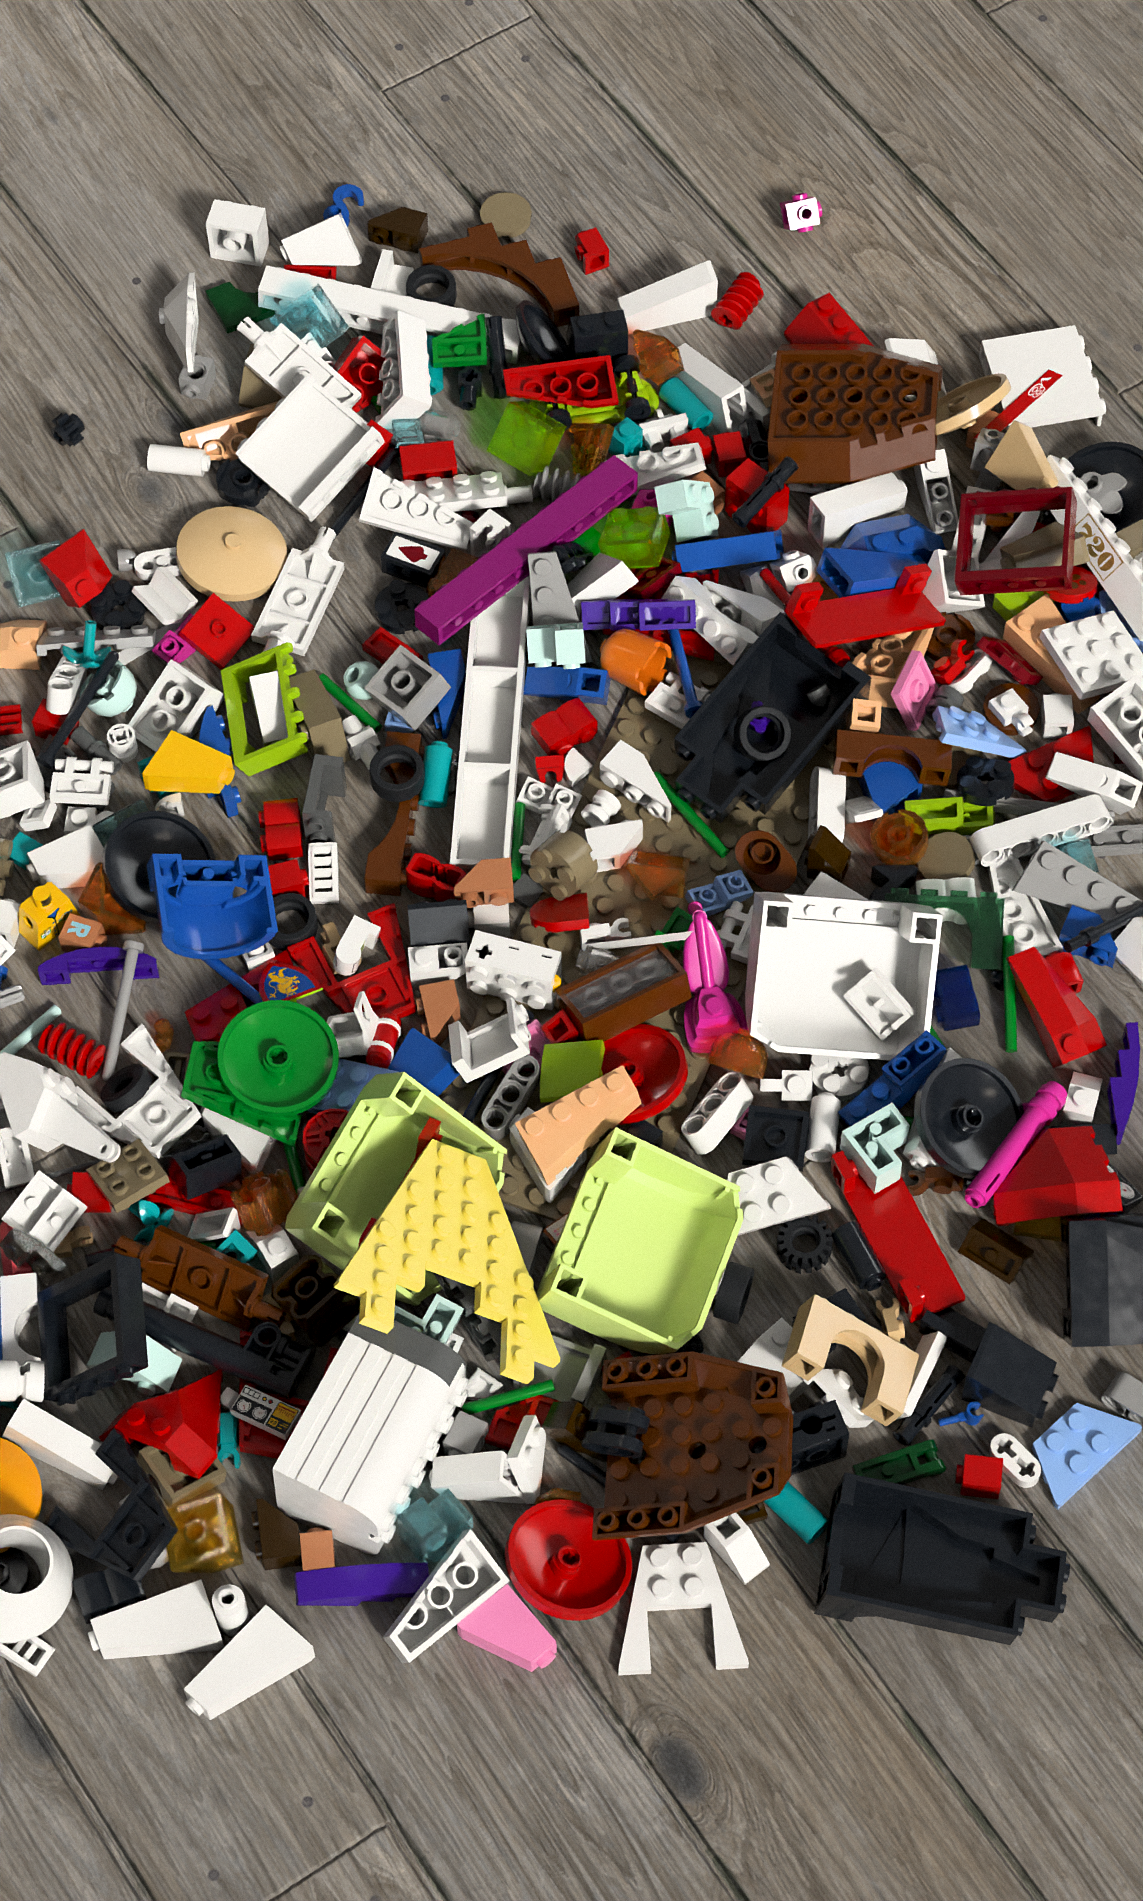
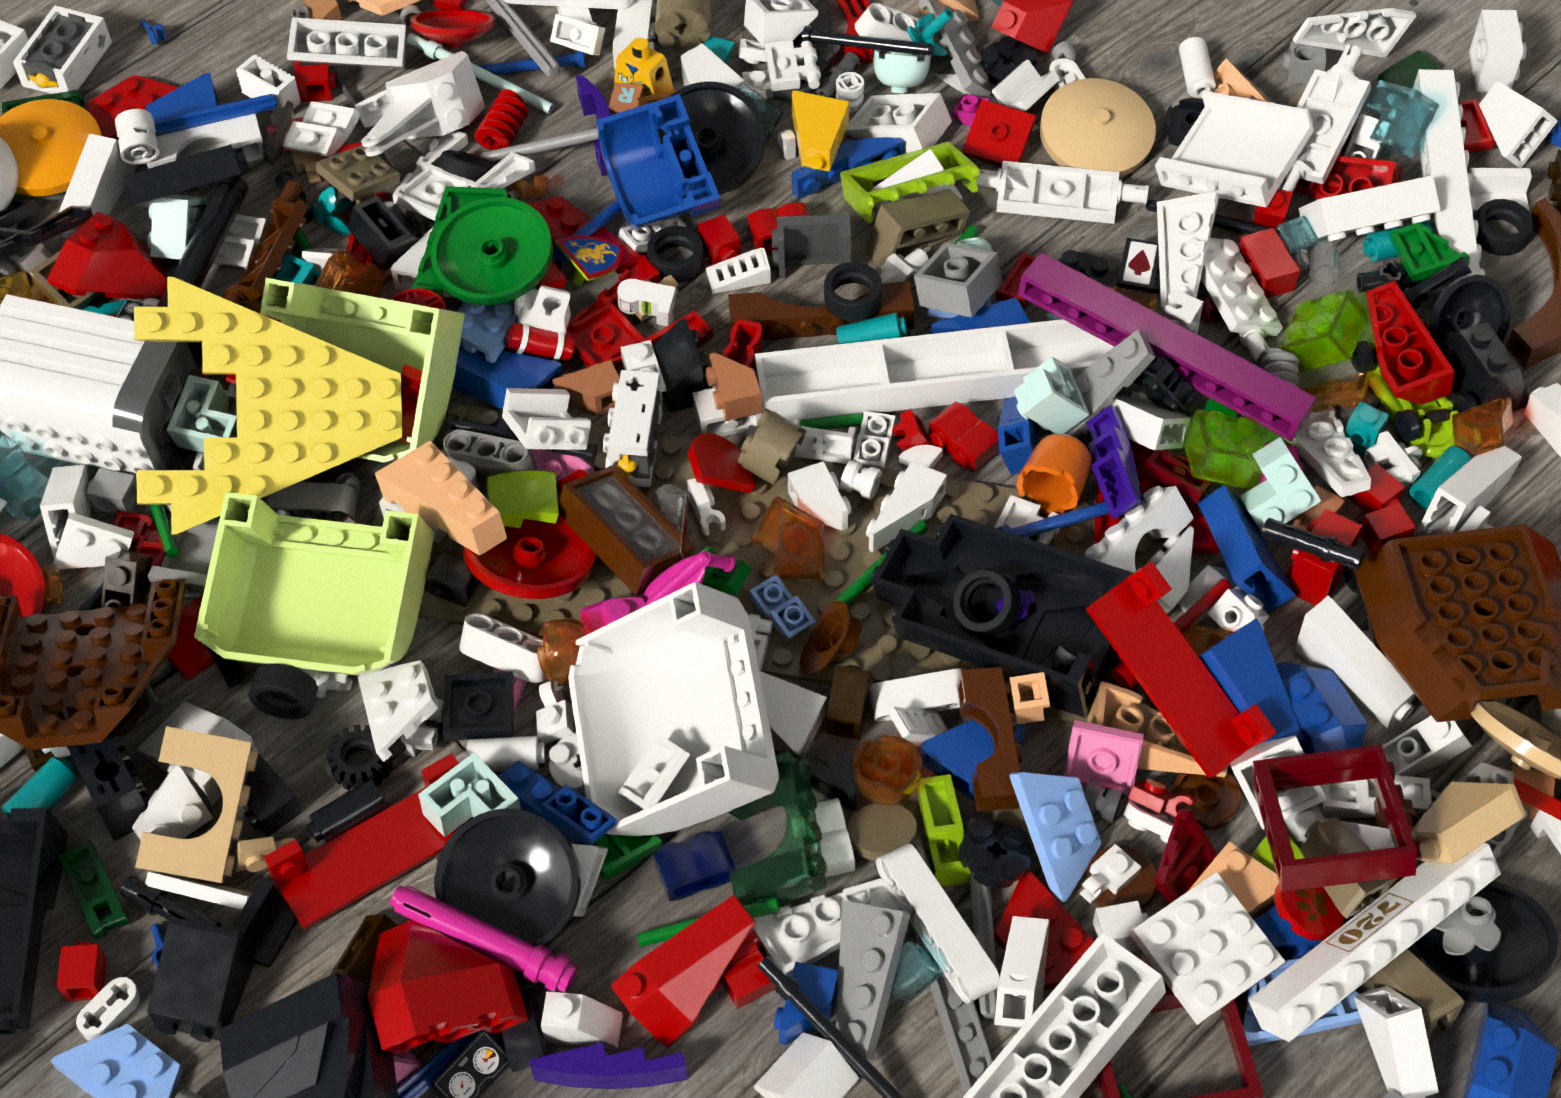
camera: 80 degrees right, 5 degrees down
(608, 1417) = (100, 599): black brick -> none

